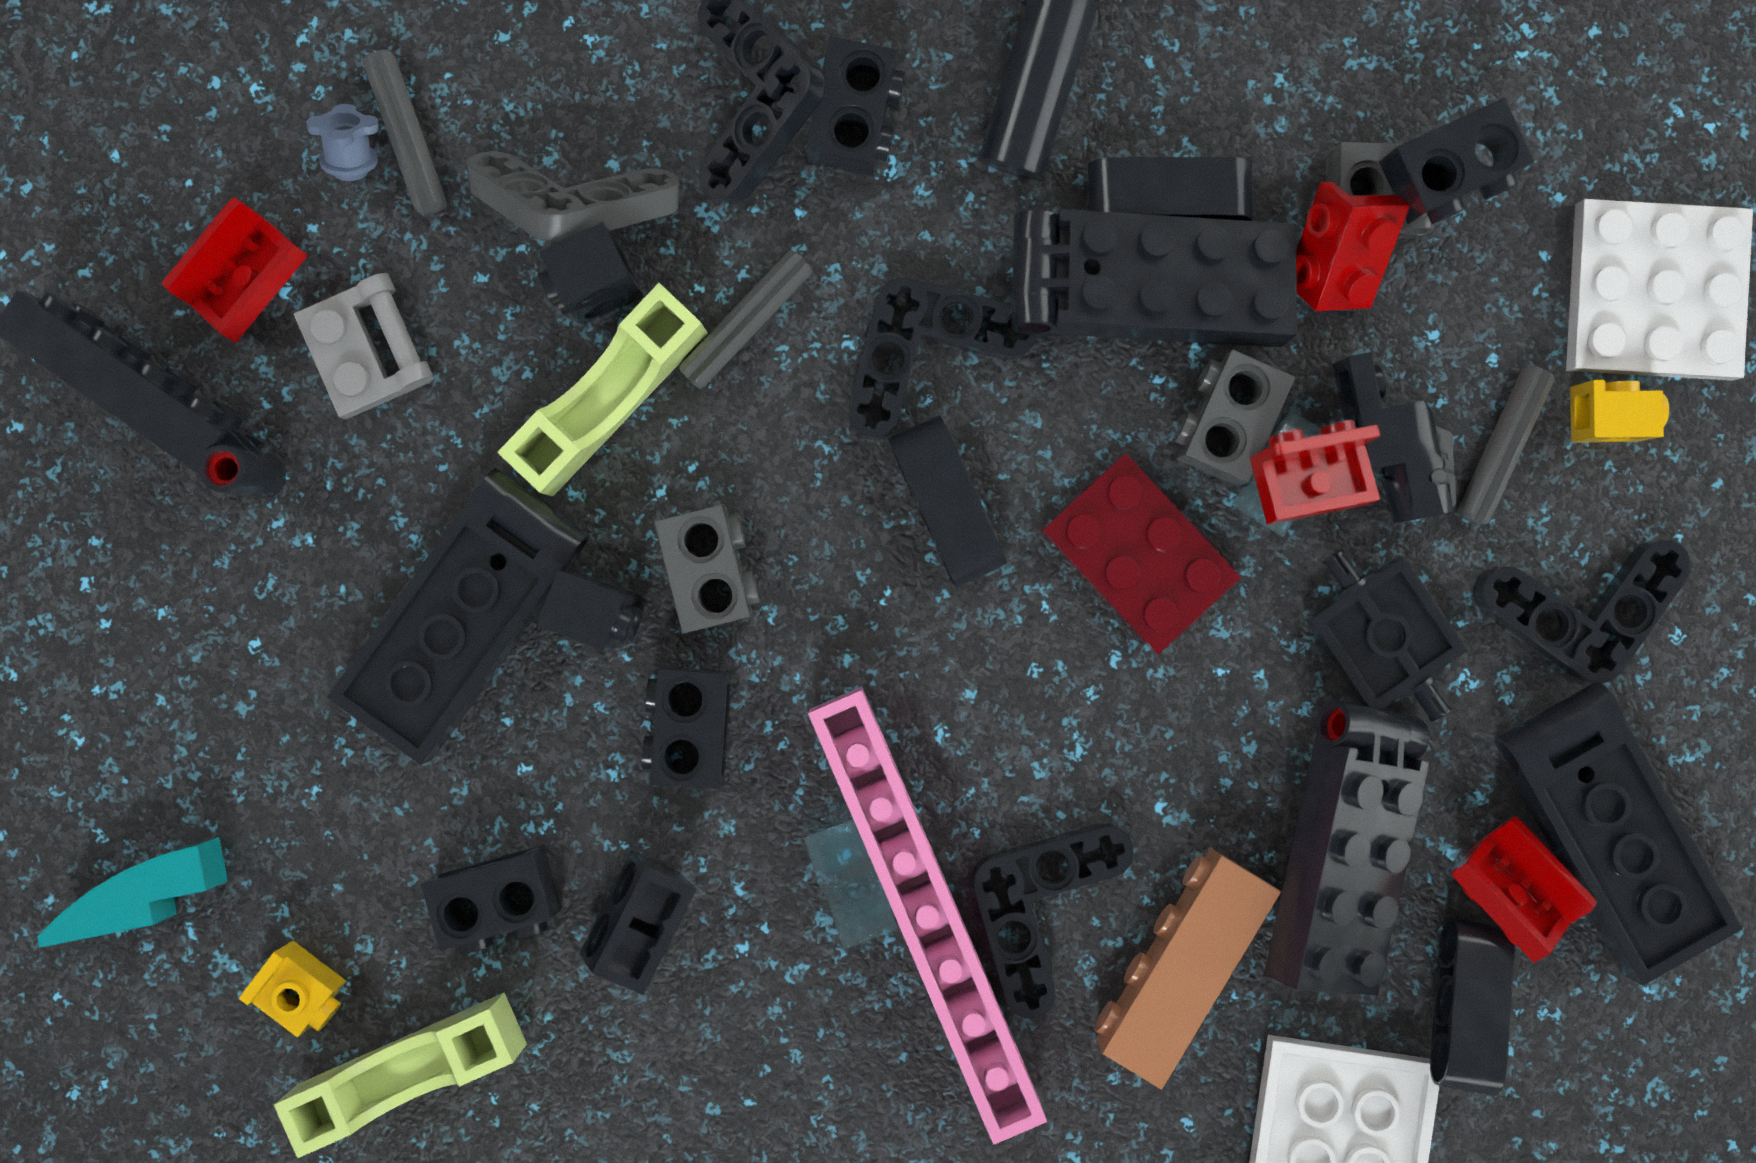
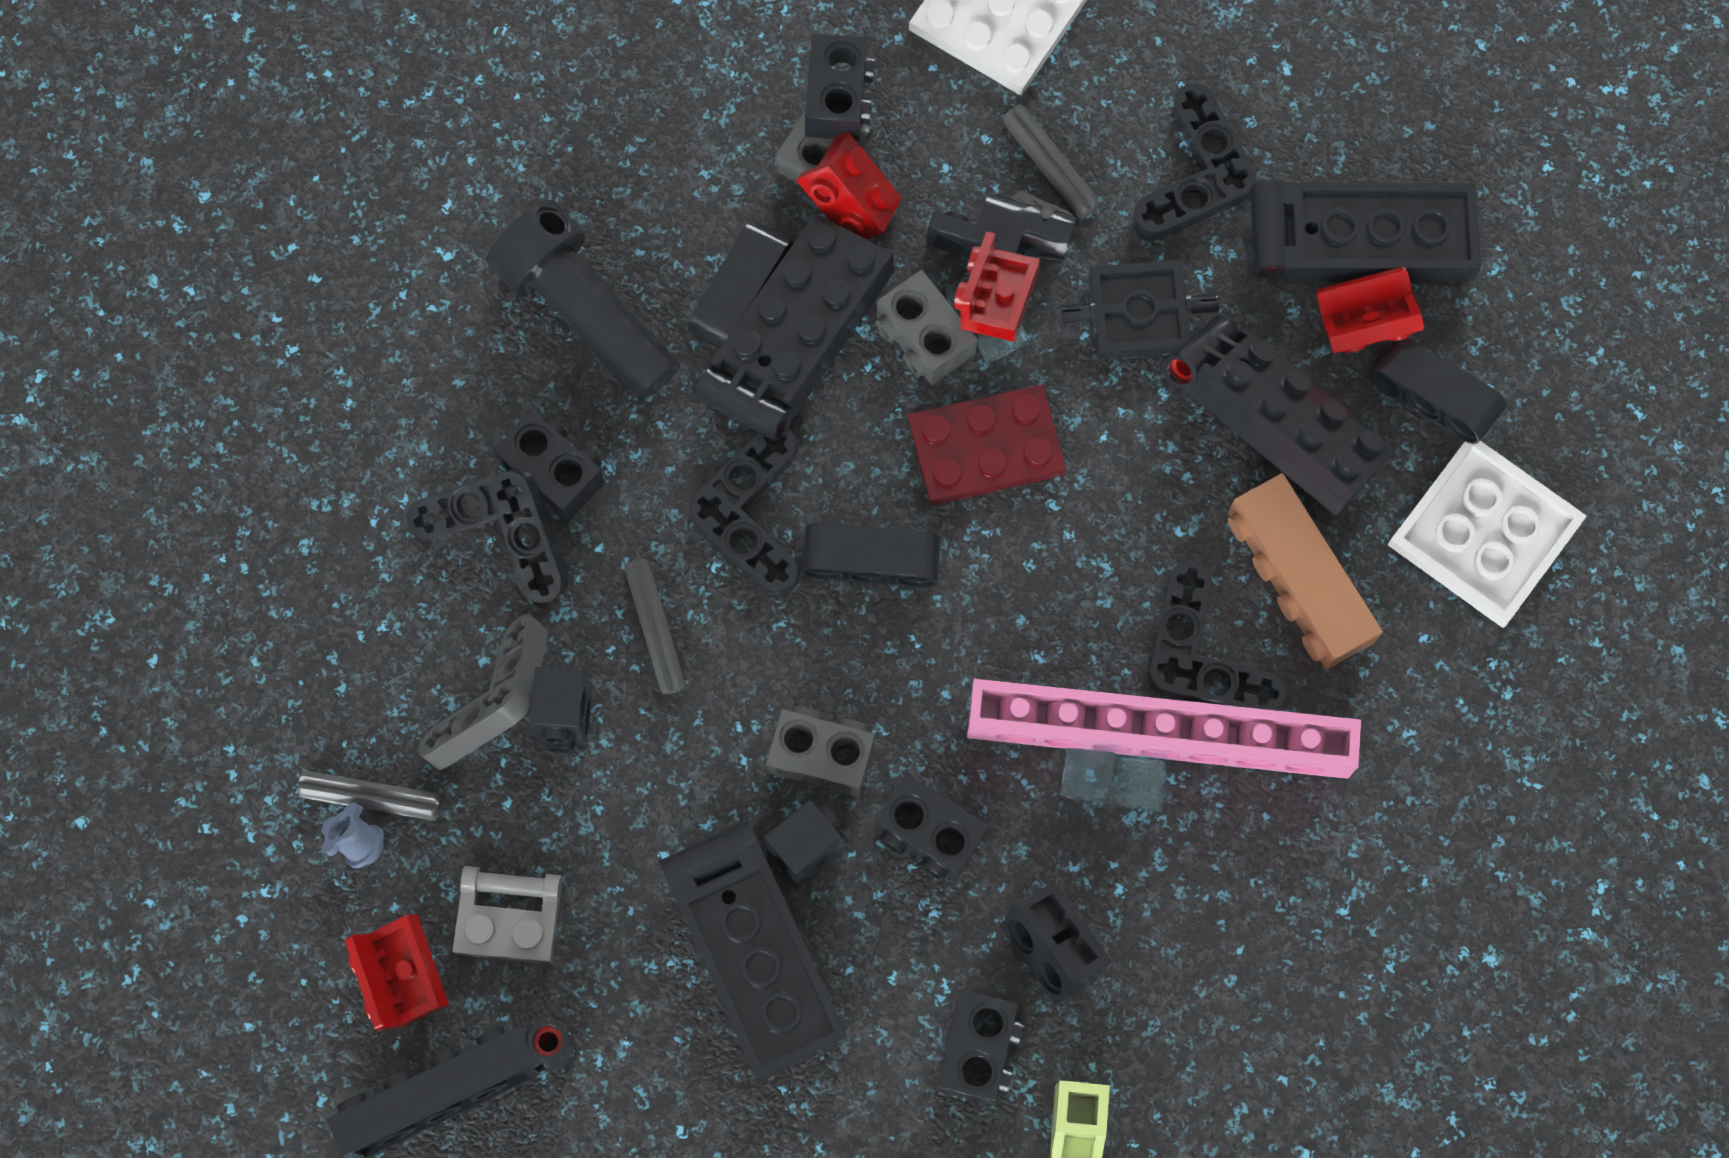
camera: 60 degrees left, 15 degrees down
(578, 423) = (649, 749): yellowish green arch -> none
(1616, 412) = (1069, 78): yellow brick -> none

